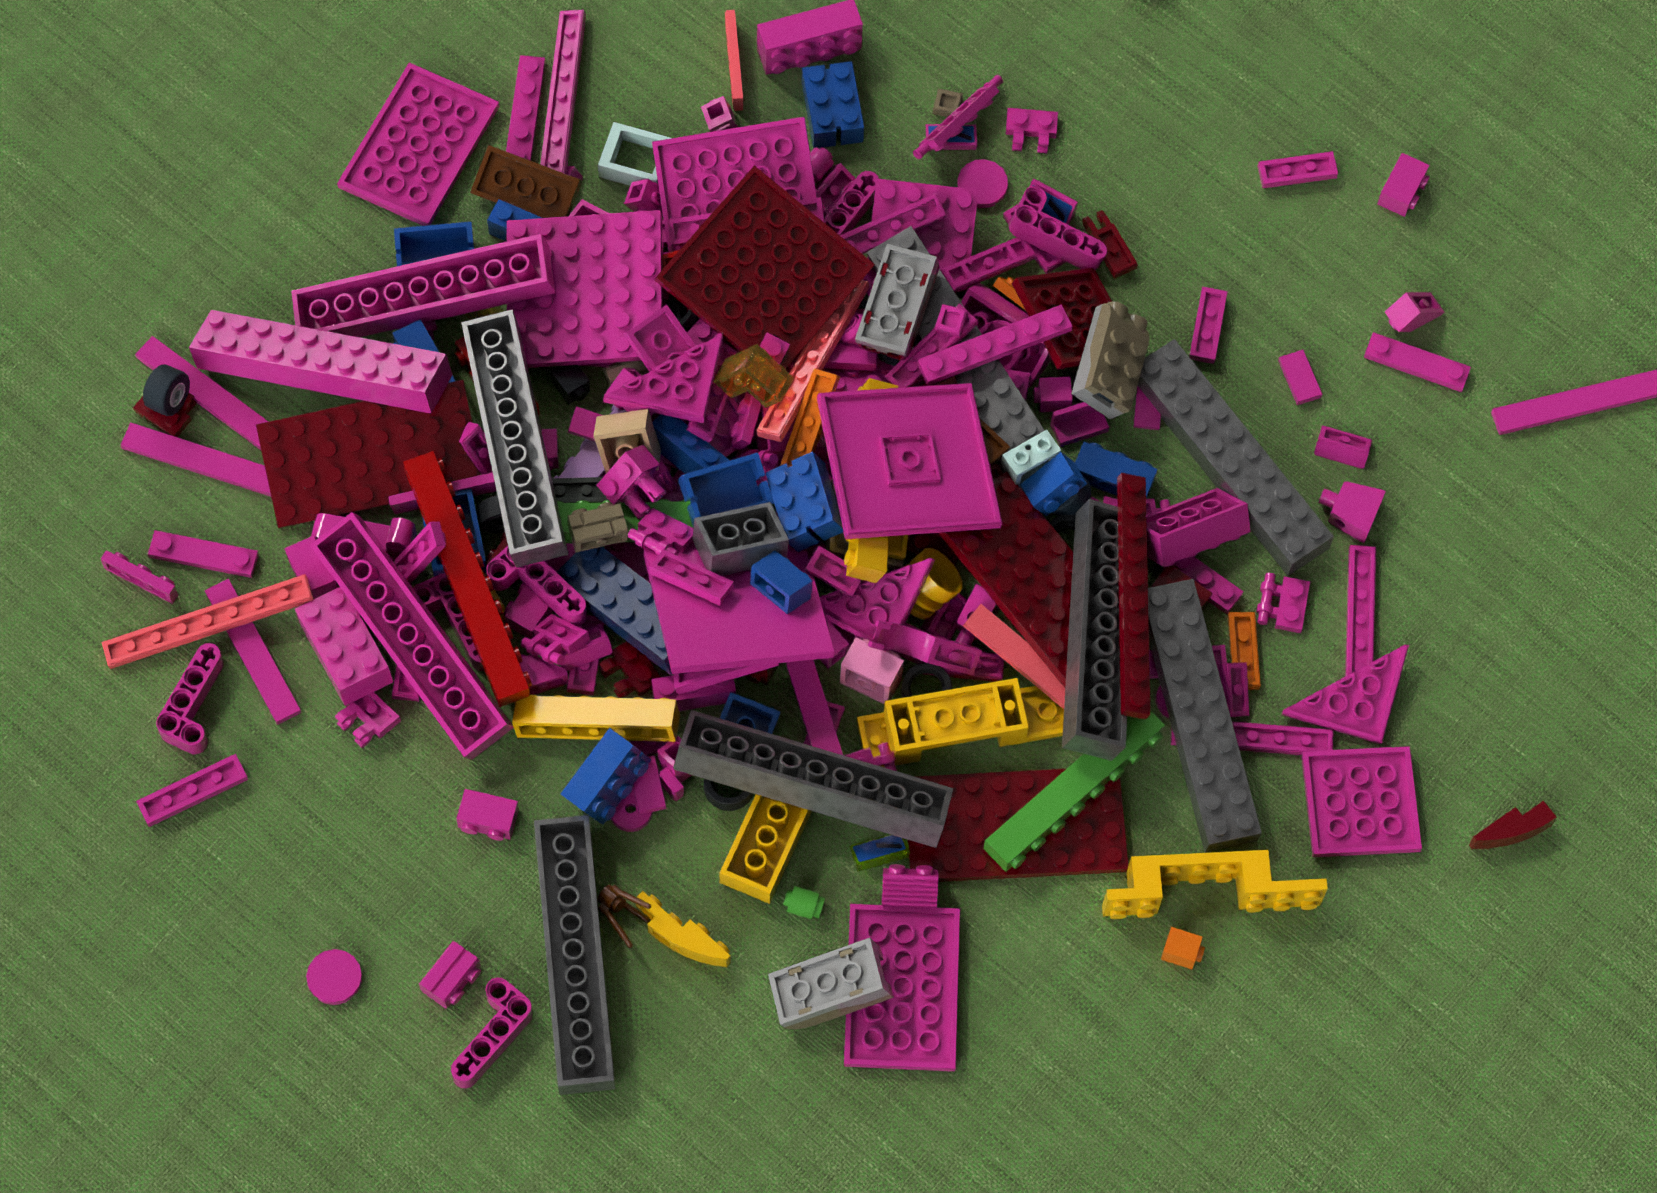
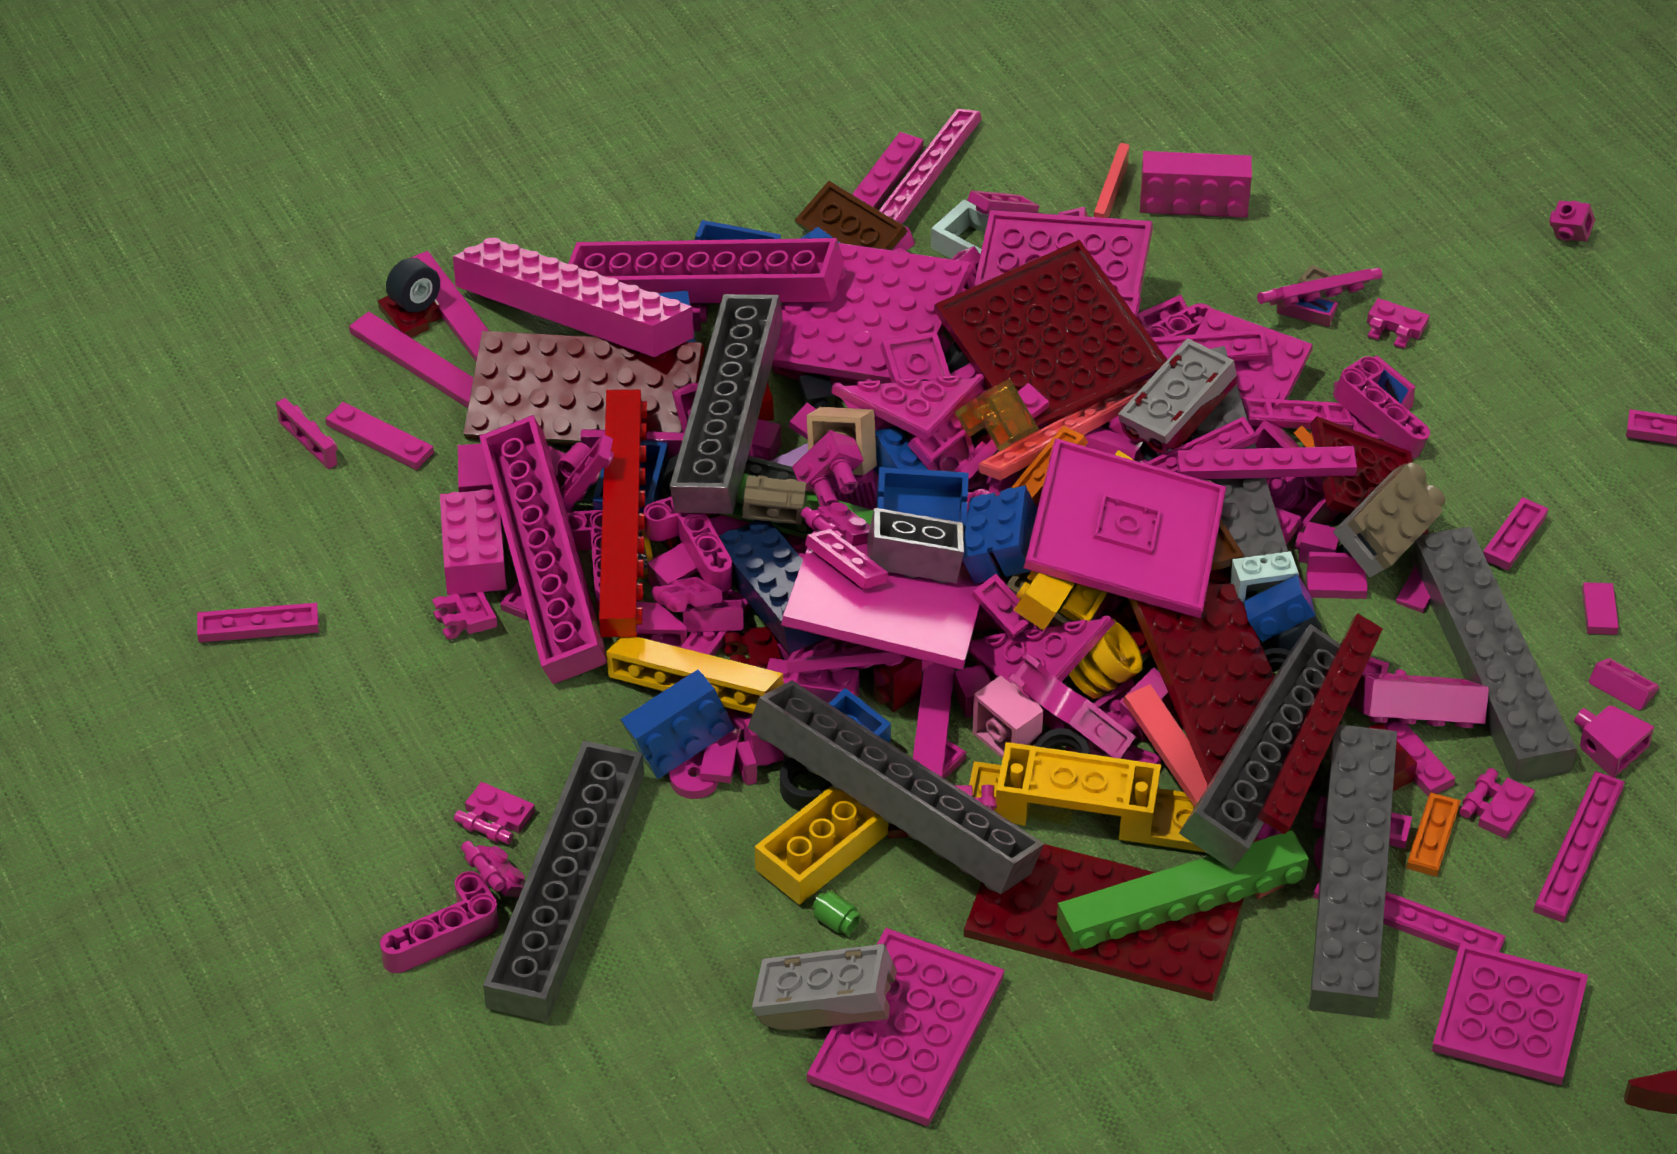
camera: 25 degrees right, 20 degrees down
(195, 695) = (280, 554): dark pink beam -> none
(207, 621) = (350, 485): coral tile -> none
(257, 660) = (383, 529): dark pink tile -> none
(334, 977) = (310, 827): dark pink tile -> none
(418, 145) = (764, 172): dark pink plate -> none
(450, 975) = (428, 860): dark pink brick -> none
(482, 900) = (498, 807): none -> dark pink plate
(487, 815) = (542, 731): dark pink brick -> none
(513, 966) = (494, 868): none -> dark pink plate
(613, 899) = (633, 844): reddish brown plant -> none
(650, 115) = (1001, 202): none -> dark pink plate
(690, 940) = (691, 903): yellow slope -> none
(781, 582) = (939, 590): blue brick -> none
(821, 162) = (1156, 291): dark pink brick -> none
(832, 104) = (1194, 239): blue piece -> none
(879, 851) = (941, 895): slope -> none
(910, 886) = (956, 930): dark pink brick -> none
(951, 320) = (1228, 427): dark pink tile -> none
(987, 178) = (1329, 354): dark pink tile -> none
(1103, 467) = (1335, 616): blue brick -> none
(1118, 256) = (1440, 446): dark red hinge -> none
(1183, 948) = (1240, 1087): orange brick -> none
(1235, 687) = (1405, 860): dark pink slope -> none
(1249, 869) = (1302, 1013): yellow bracket -> none
(1357, 702) = (1542, 916): dark pink tile -> none

